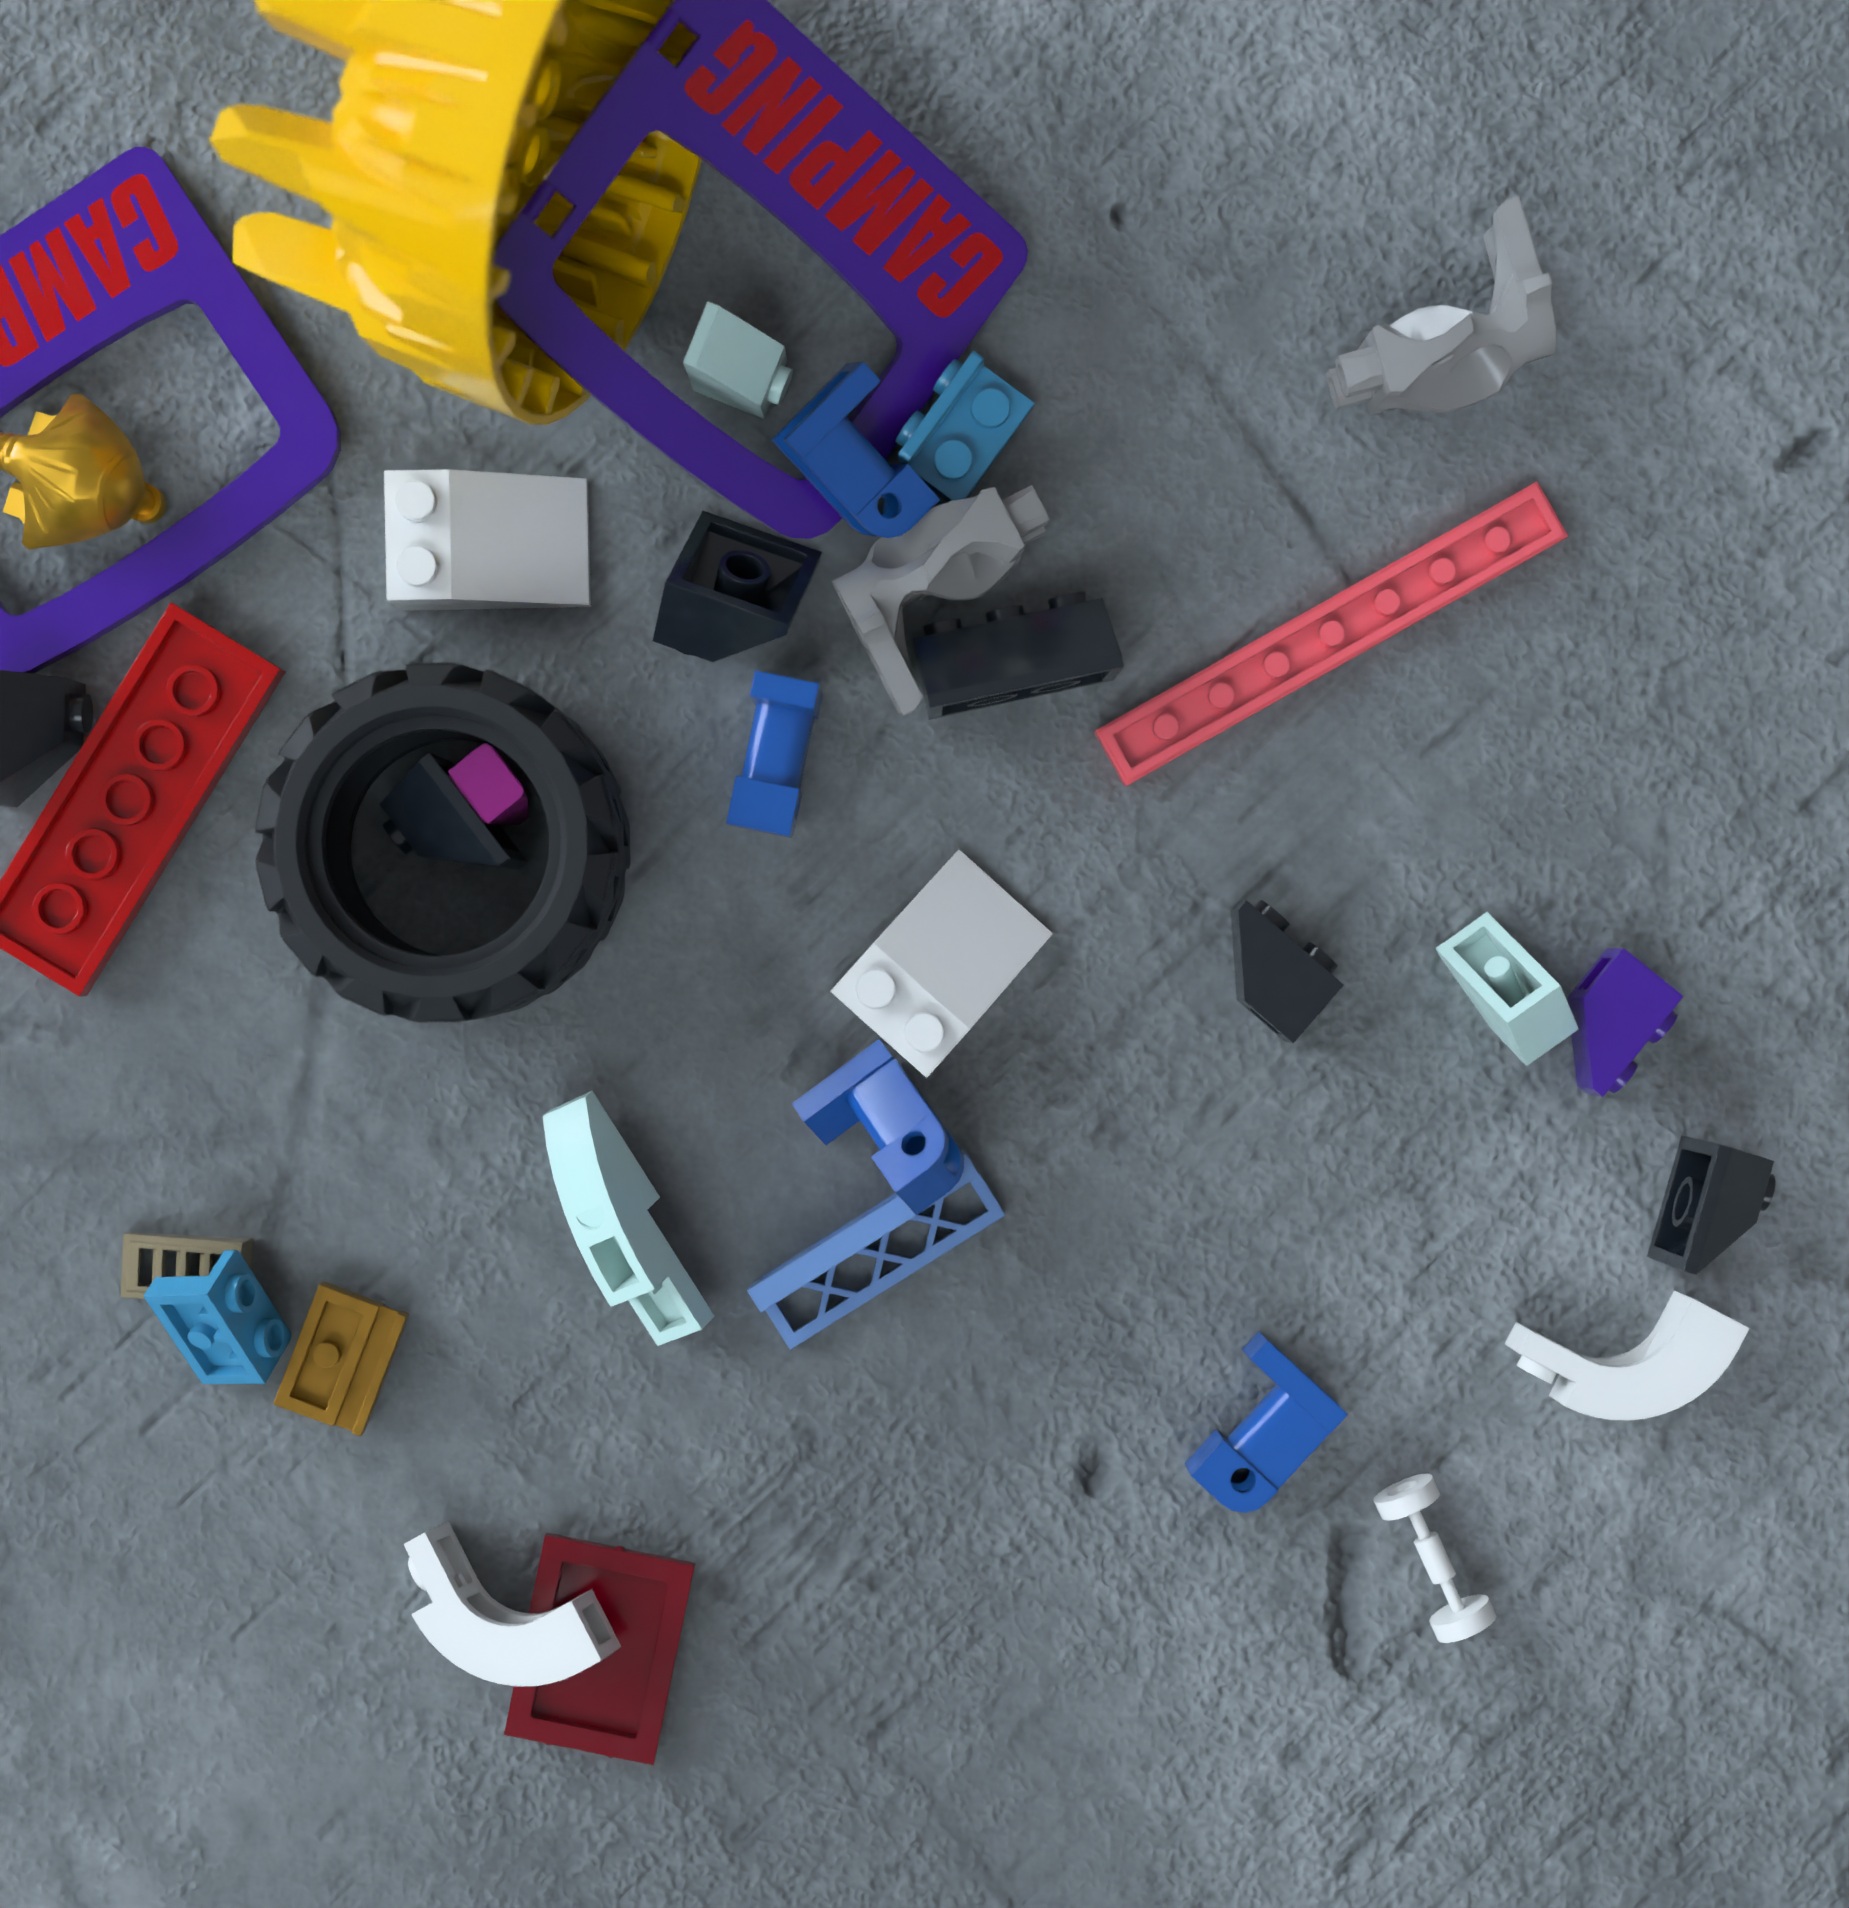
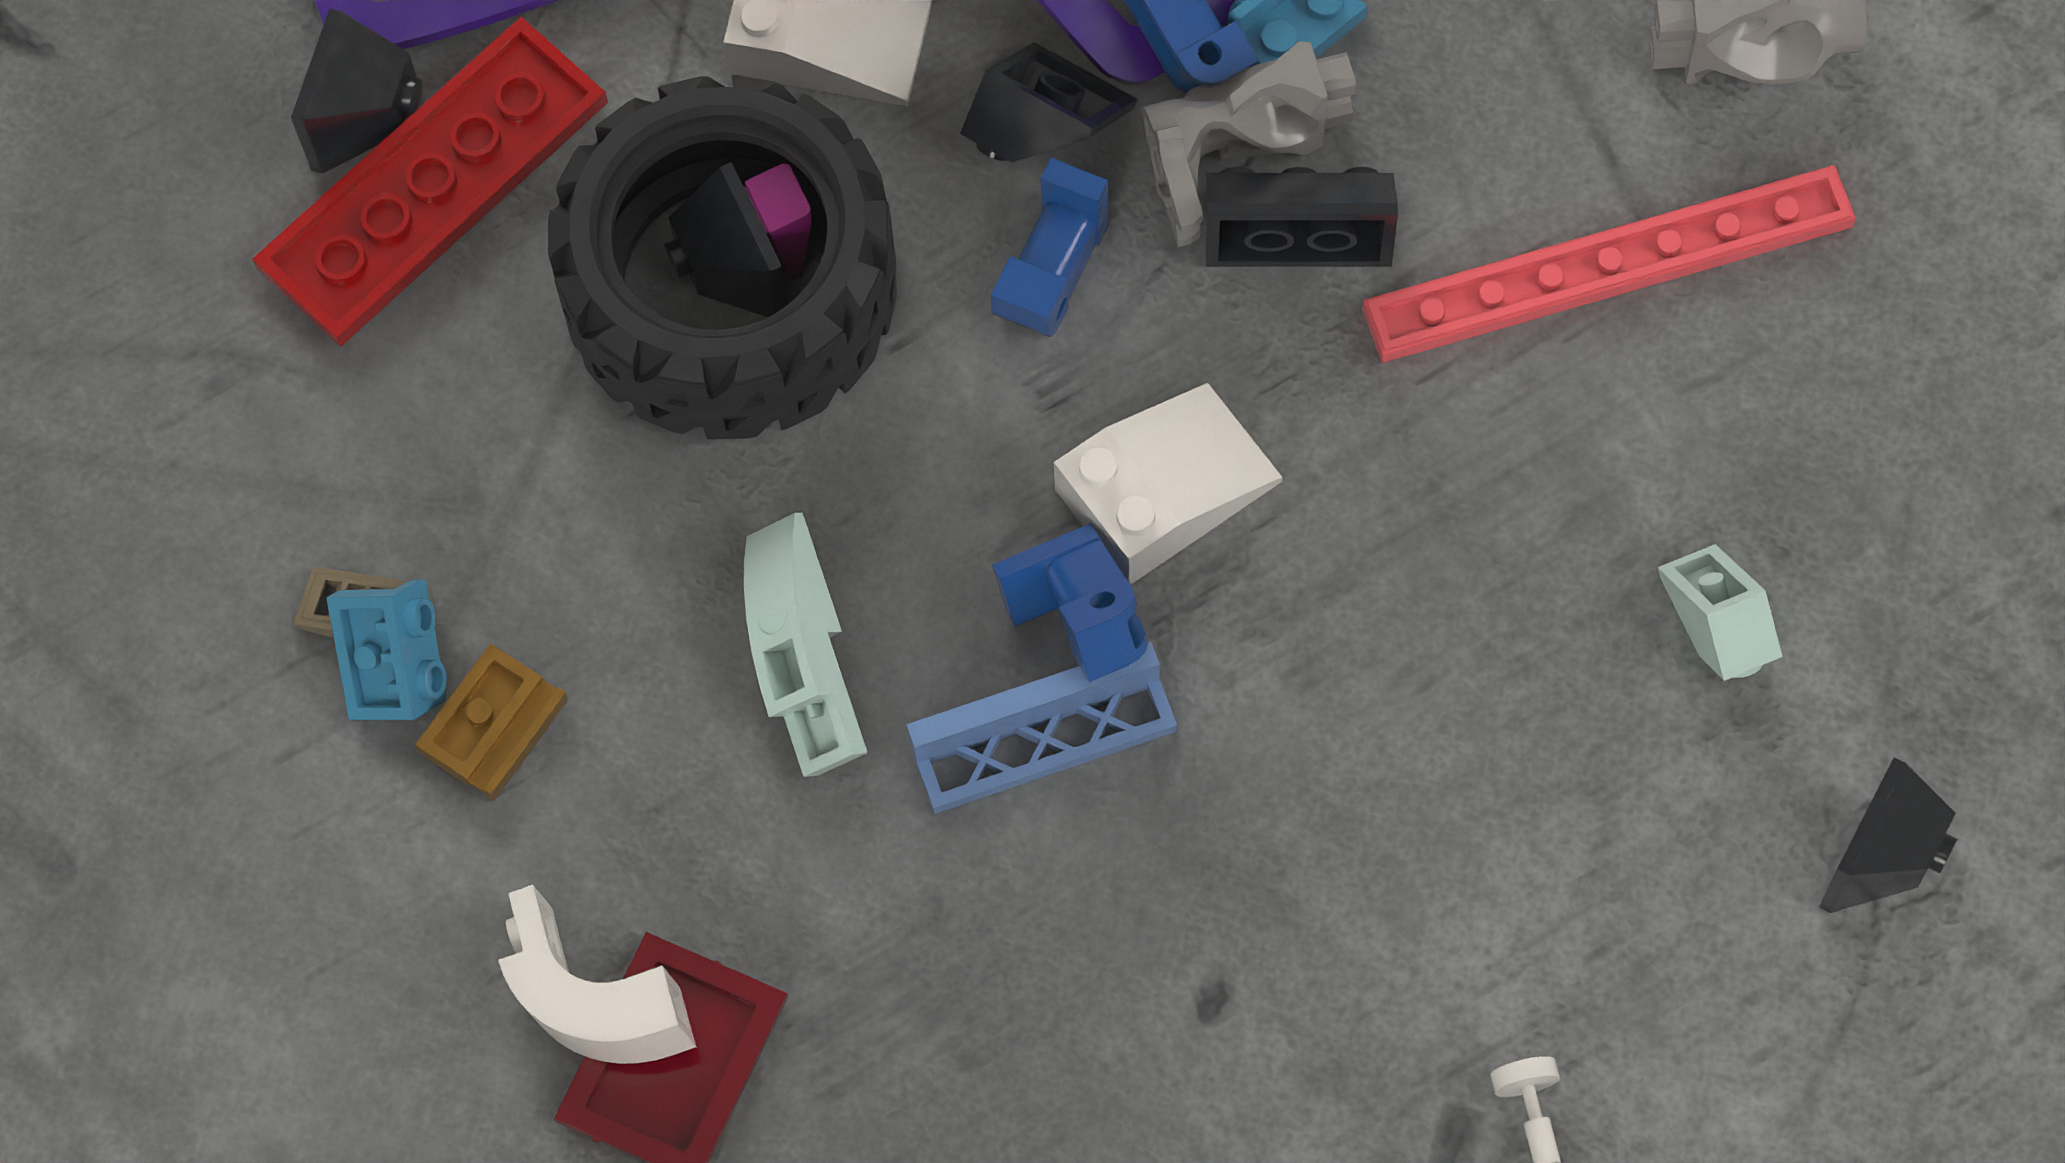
camera: 20 degrees right, 20 degrees down
(1270, 1439) = (1399, 987): blue piece -> none
(1275, 975) = (1495, 554): black slope -> none
(1617, 1013) = (1823, 655): dark purple slope -> none
(1661, 1374) = (1781, 1012): white arch -> none

